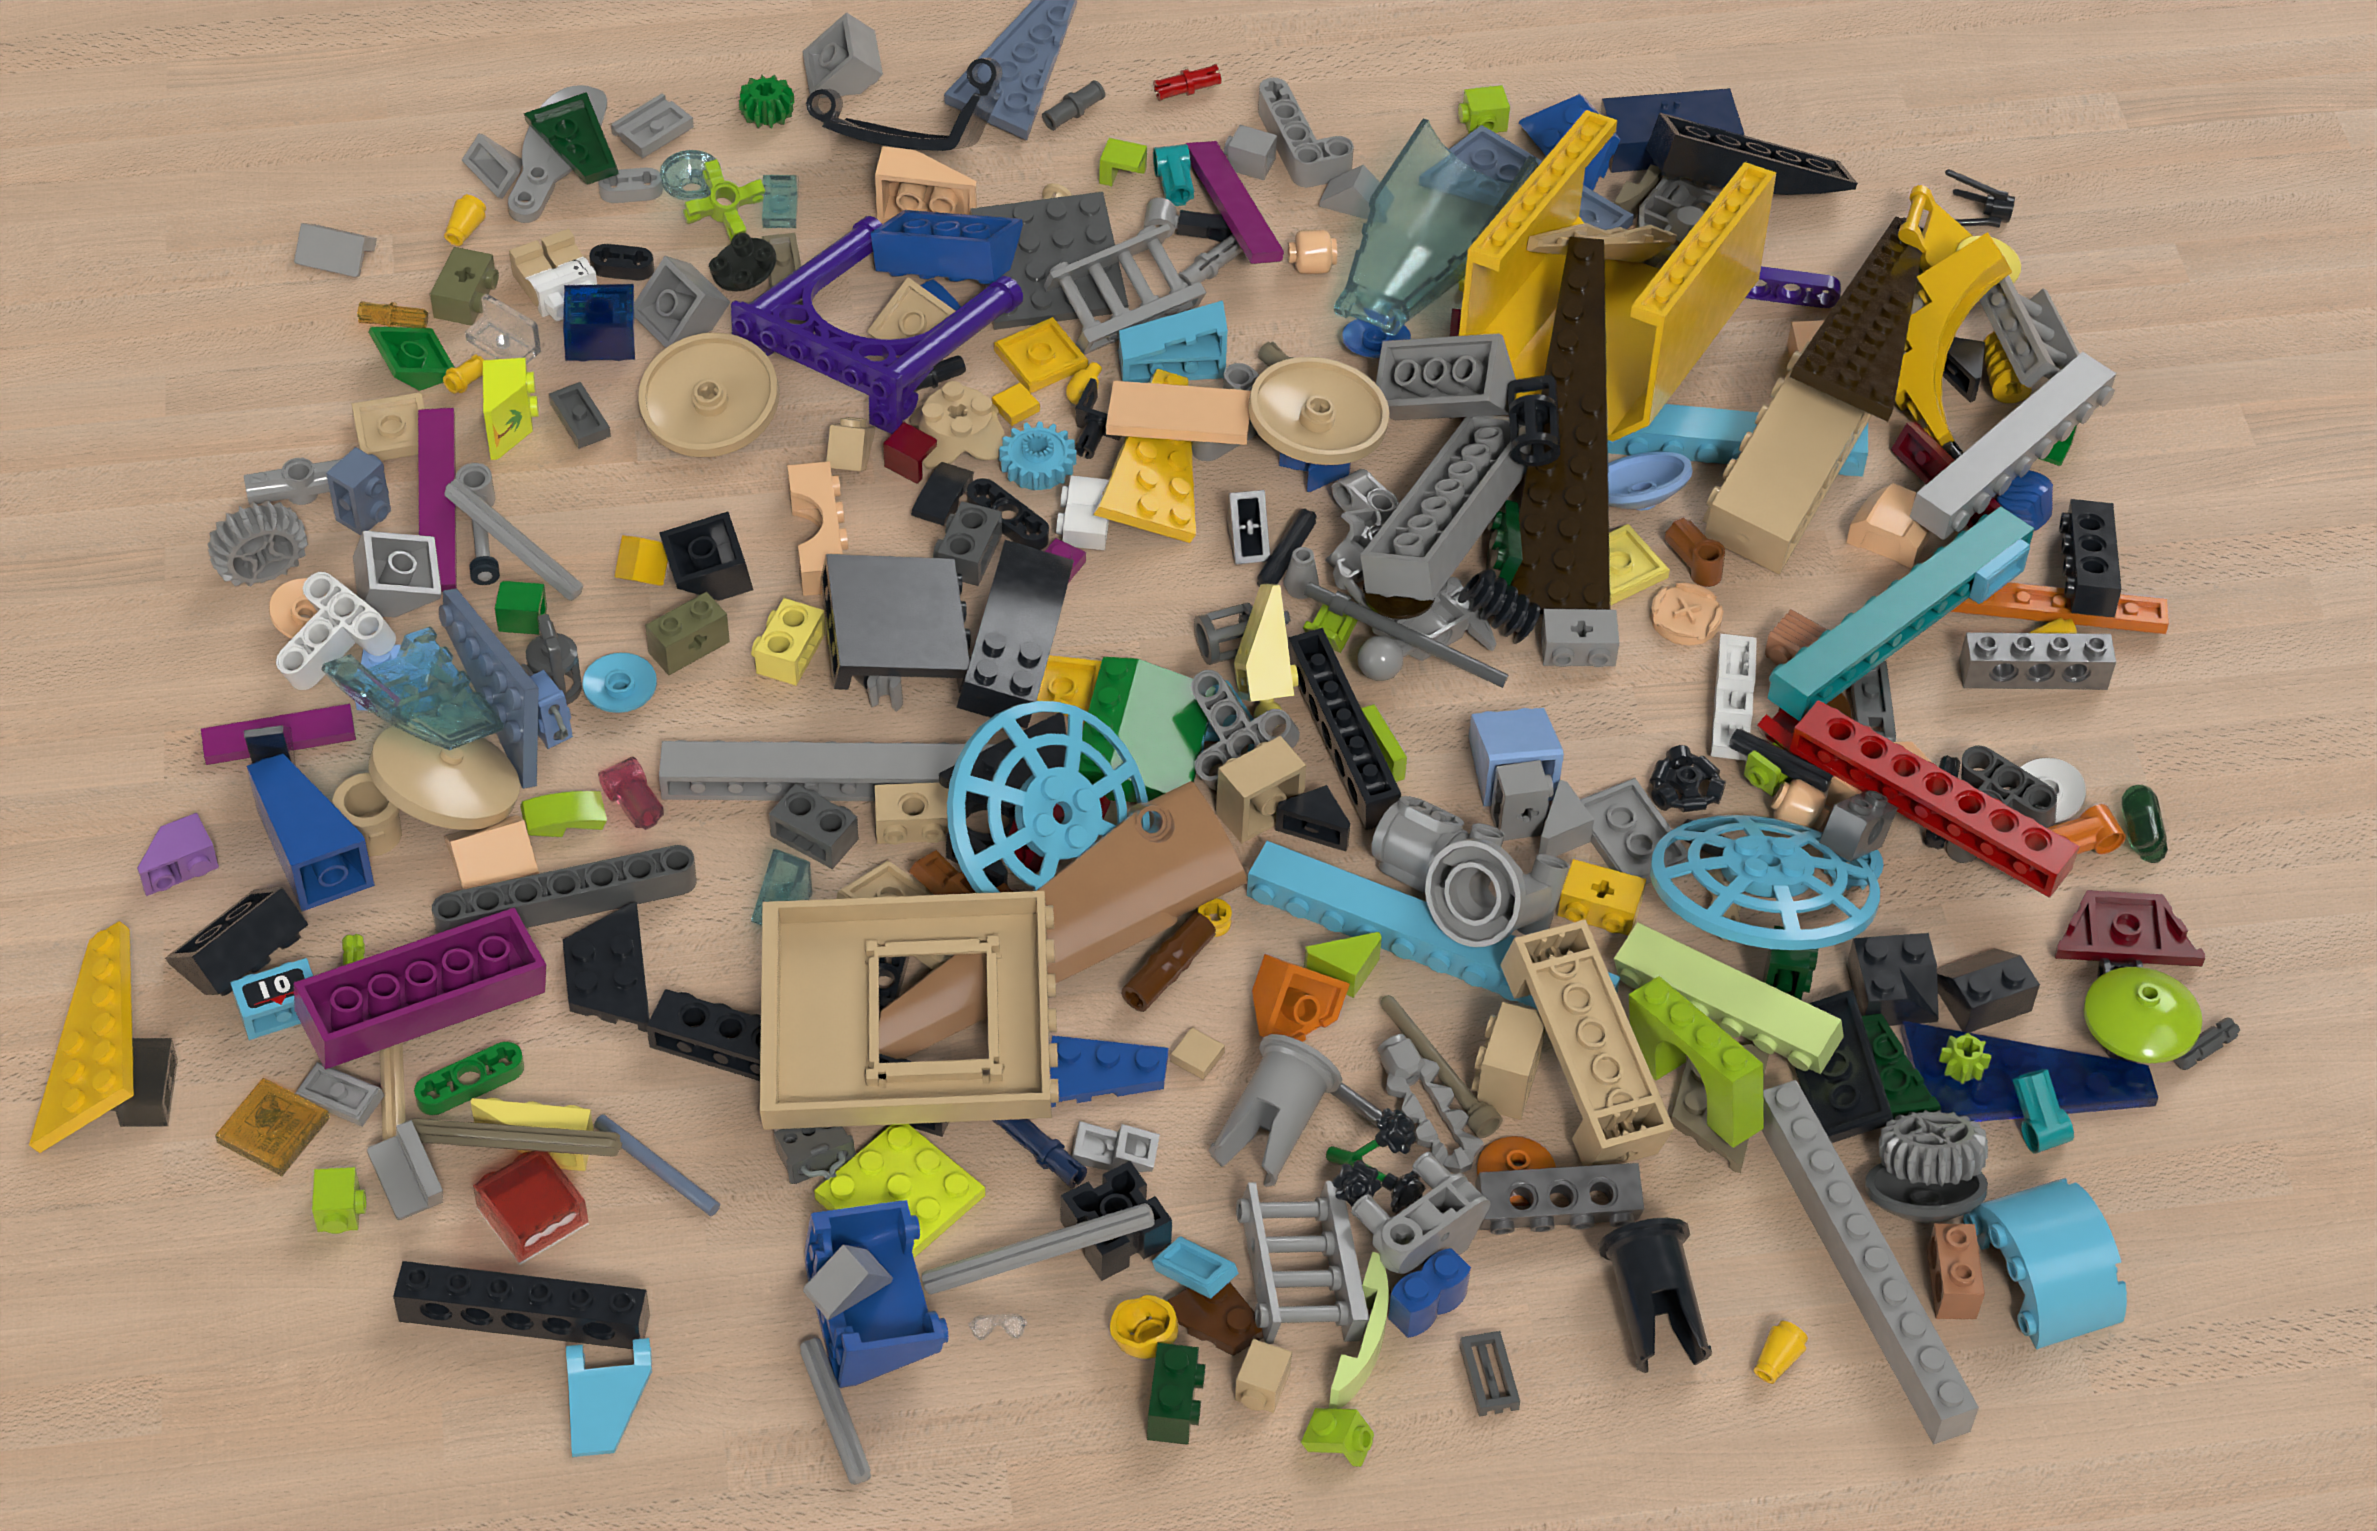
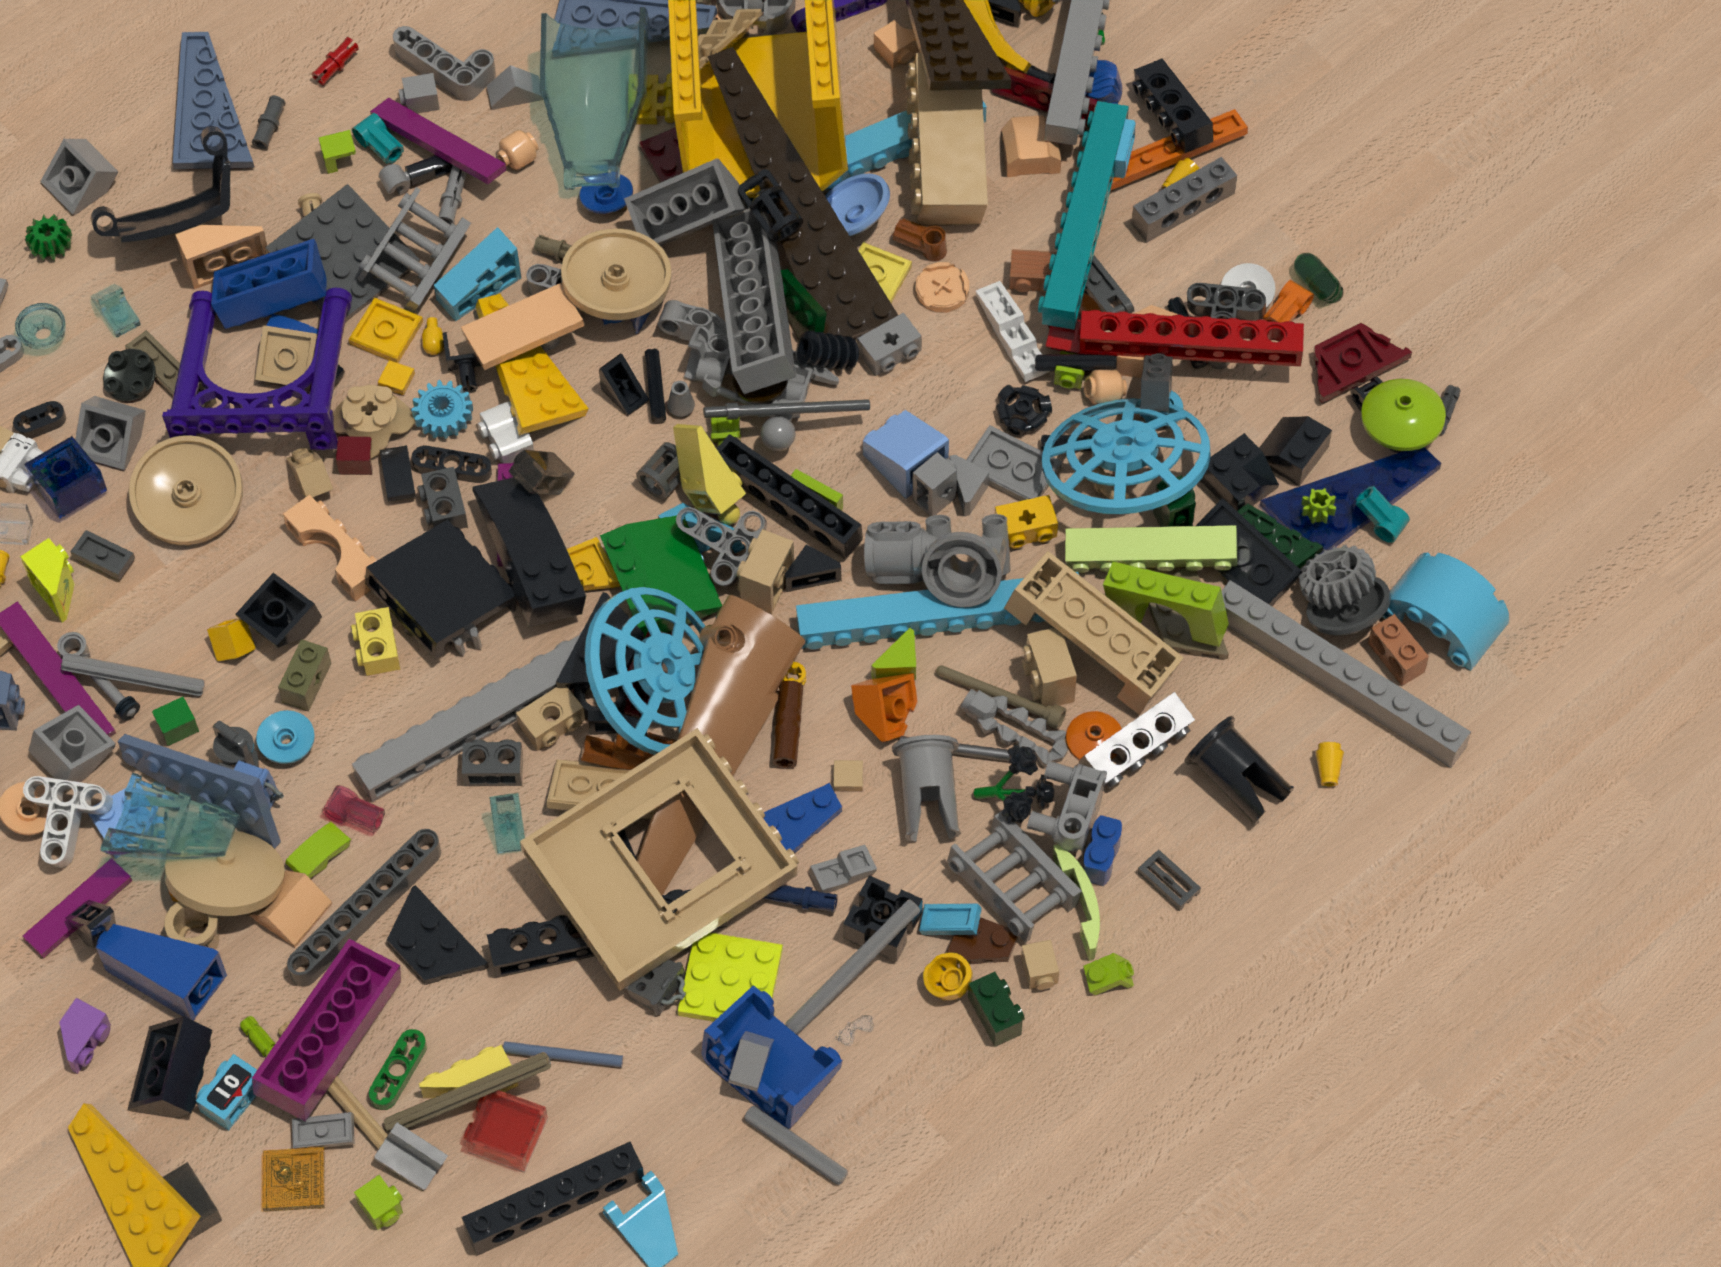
camera: 30 degrees left, 10 degrees up
(709, 206) = (70, 325): lime pin -> none
(1090, 564) = (541, 472): none -> clear smoke brick

